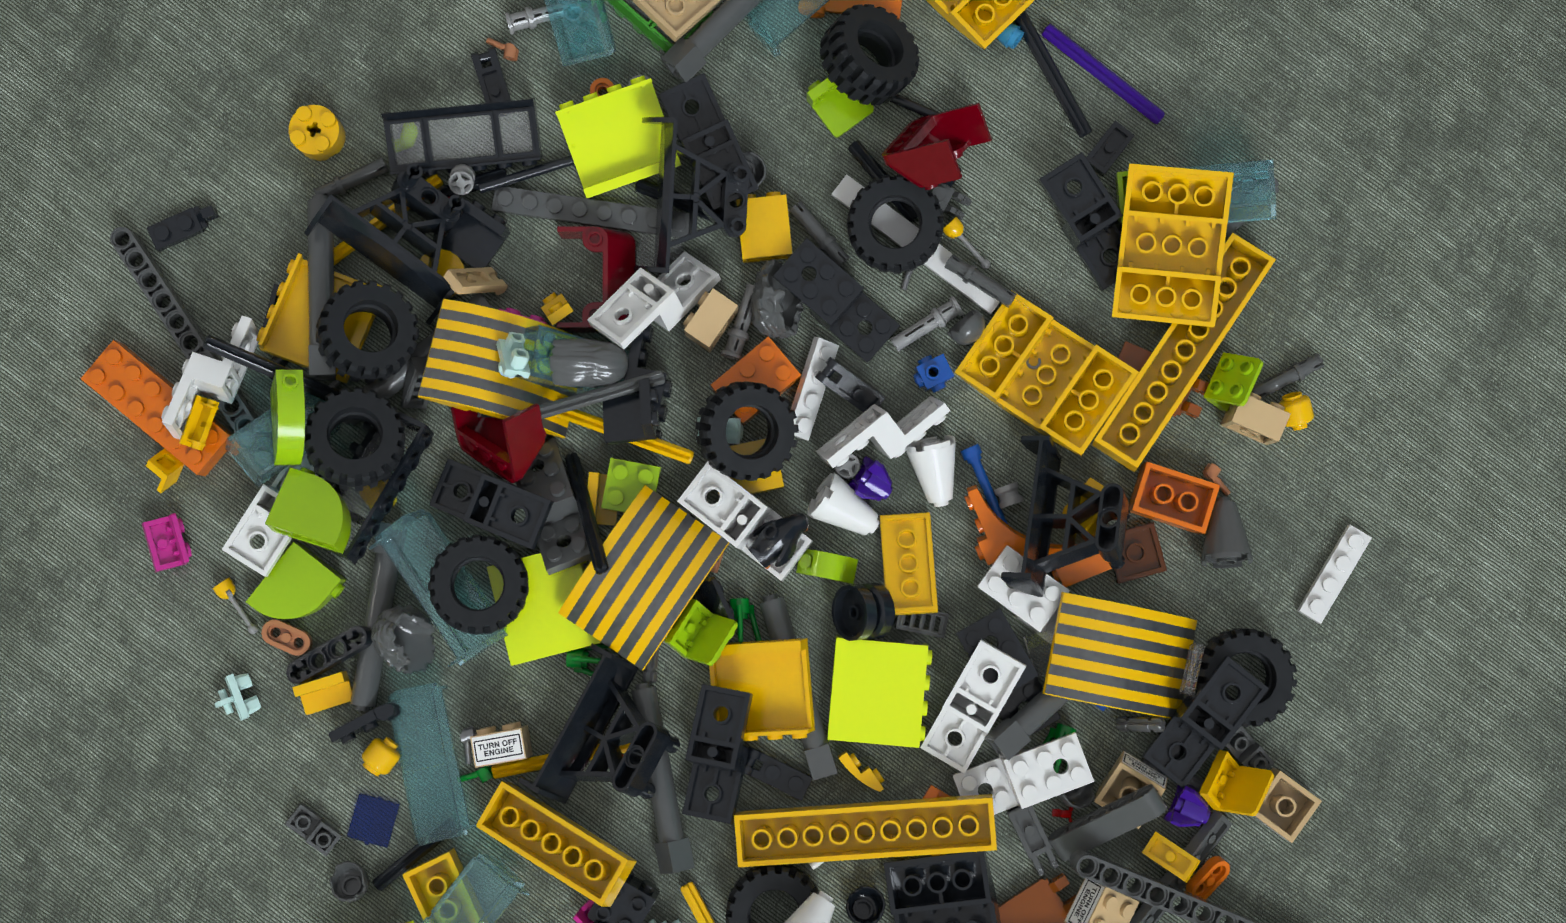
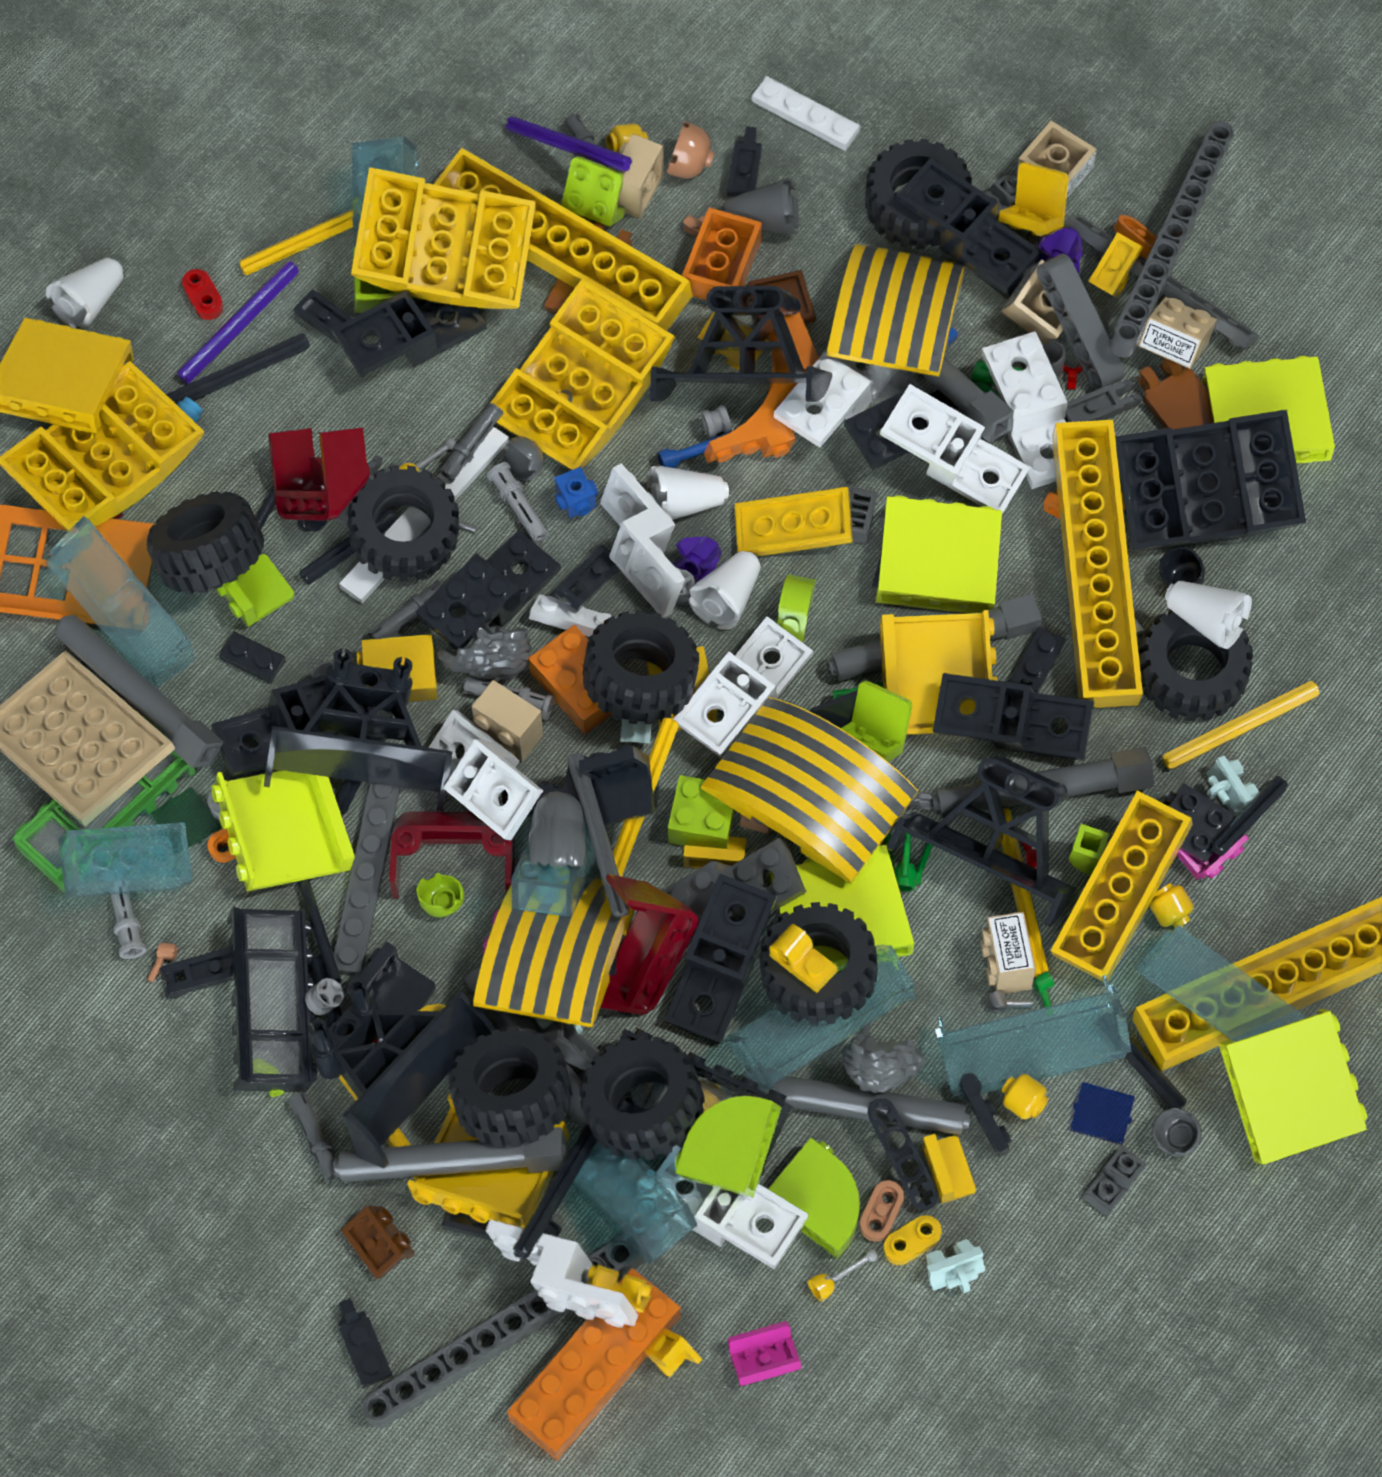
camera: 85 degrees left, 20 degrees down
(264, 235) = (377, 1240): none -> reddish brown bracket
(266, 660) = (913, 1239): none -> yellow plate
(288, 417) = (613, 1165): lime brick -> none
(308, 121) = (263, 1187): yellow brick -> none
(465, 571) = (796, 954): none -> yellow plate
(475, 280) = (451, 978): tan plate -> none
(513, 356) = (552, 911): light aqua hips -> none
(548, 888) = (1171, 906): none -> yellow head
(556, 307) = (487, 892): yellow slope -> none
(557, 271) = (440, 895): none -> lime hair
(586, 513) = (739, 841): black axle -> none
(596, 817) = (1088, 848): none -> lime brick
(630, 59) = (189, 809): none -> clear green piece
(778, 105) = (252, 657): none -> black plate
(778, 539) = (766, 646): black animal -> none
(863, 611) = (848, 562): black wheel -> none
(869, 777) = (1034, 571): yellow slope -> none
(1132, 40) = (202, 292): none -> red plate
(1140, 724) = (971, 294): flat silver axle -> none
(1184, 119) = (297, 243): none -> yellow axle
(1192, 669) = (911, 242): clear tile -> none
(1274, 518) = (745, 164): none -> black hinge
(1283, 357) = (568, 143): none -> dark purple axle
(1283, 469) = (691, 152): none -> nougat cylinder

